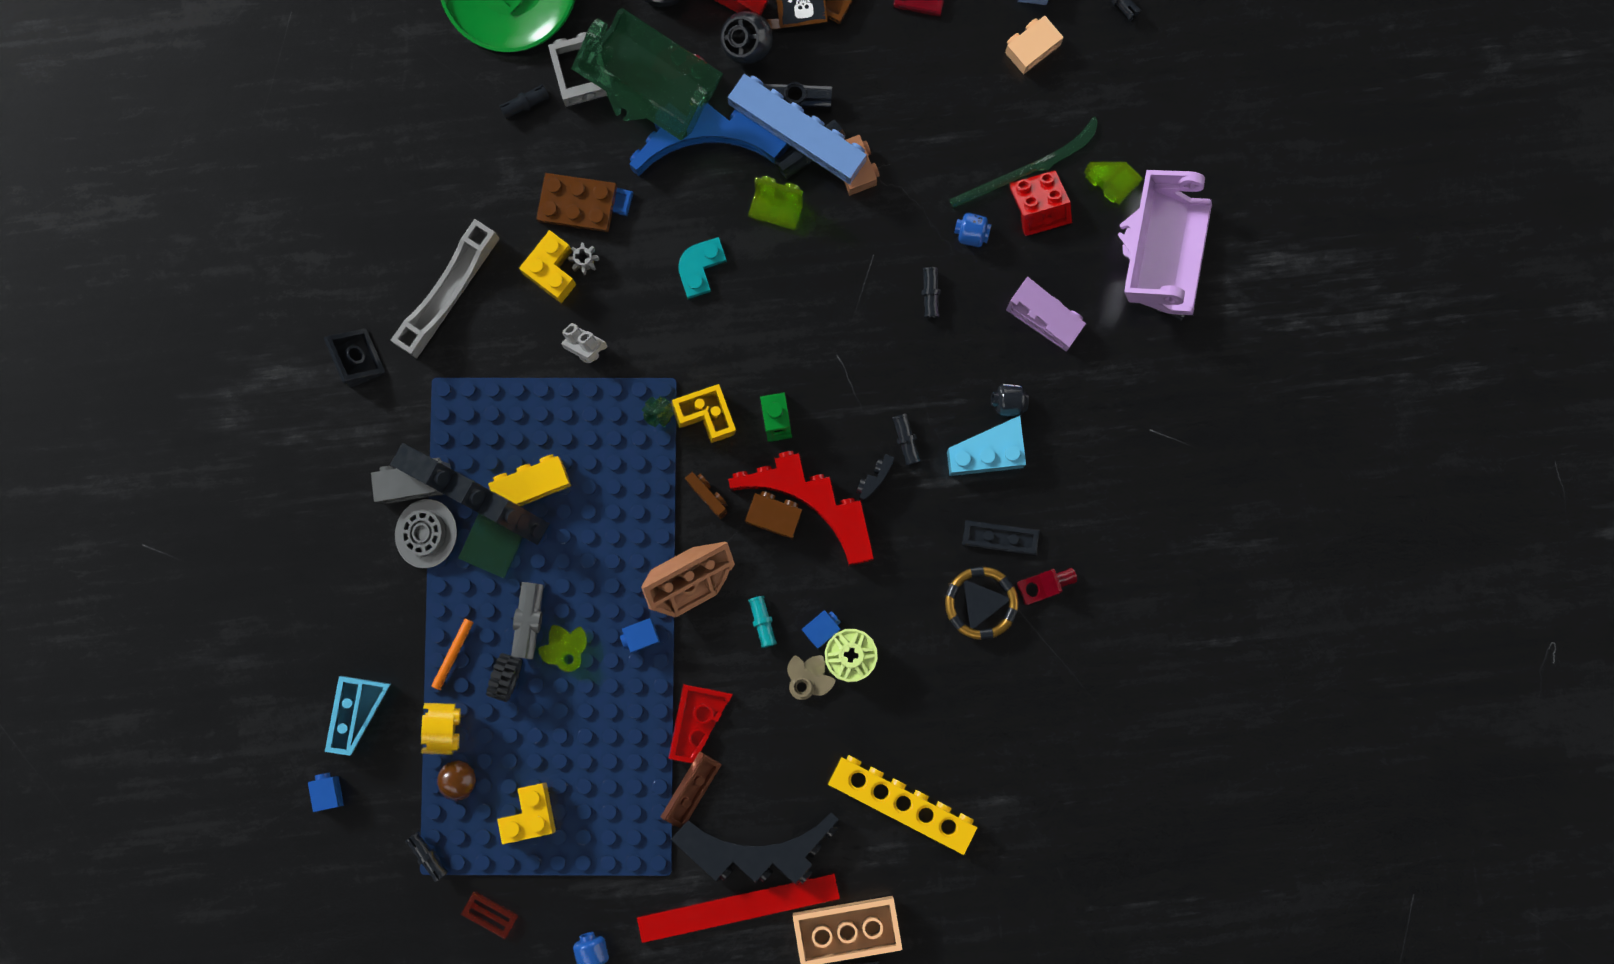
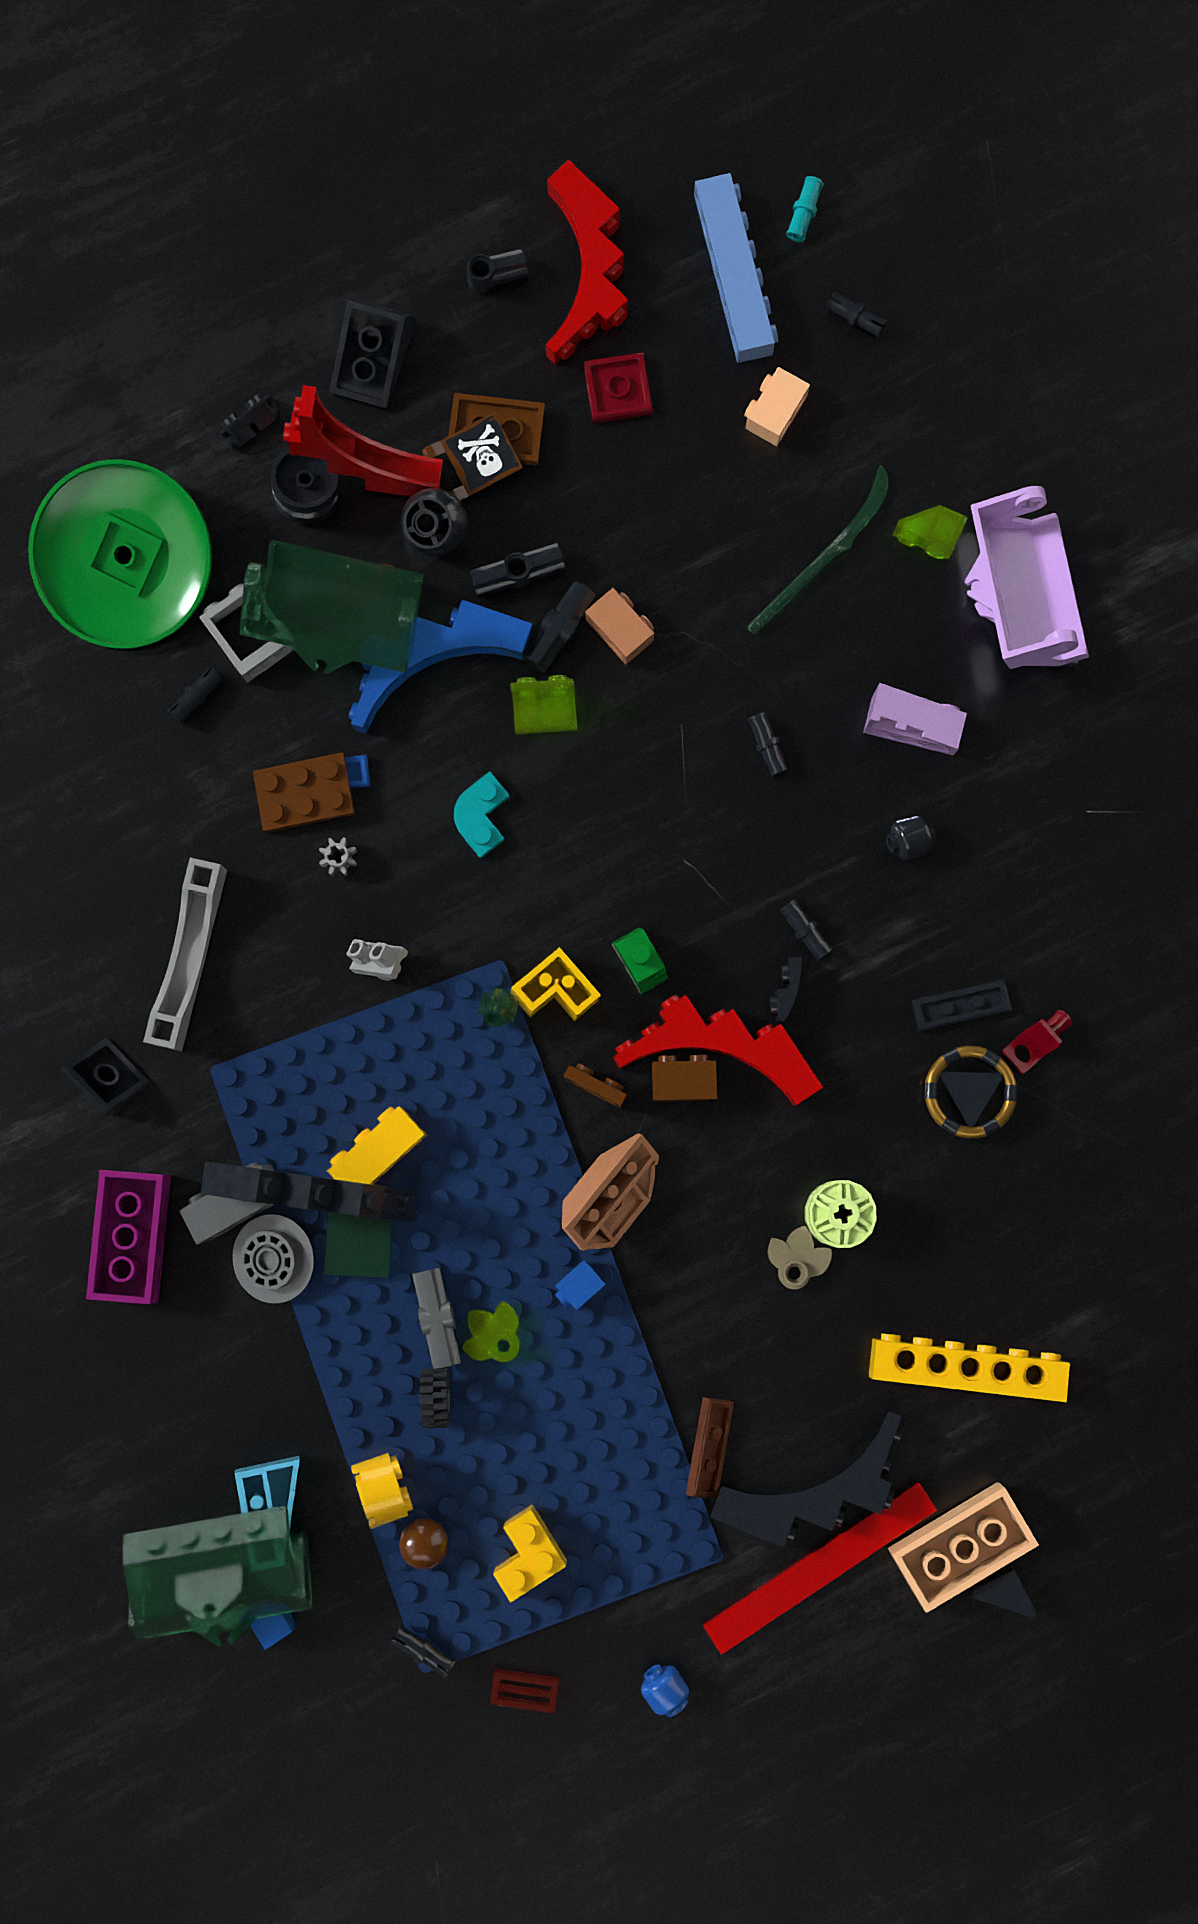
camera: 20 degrees left, 0 degrees up
(298, 744) = (216, 1575): none -> clear green piece
(327, 478) = (128, 1237): none -> magenta brick
(452, 654) = (360, 1392): orange bar -> none
(544, 264) = (293, 882): yellow brick -> none
(695, 719) = (682, 1361): red wing -> none
(762, 621) = (718, 1212): teal pin -> none
(797, 128) = (537, 607): medium blue brick -> none
(822, 628) = (792, 1194): blue brick -> none
(973, 230) = (789, 651): blue head -> none
(990, 451) = (912, 906): medium azure wedge -> none
(1041, 202) = (858, 589): red bracket -> none

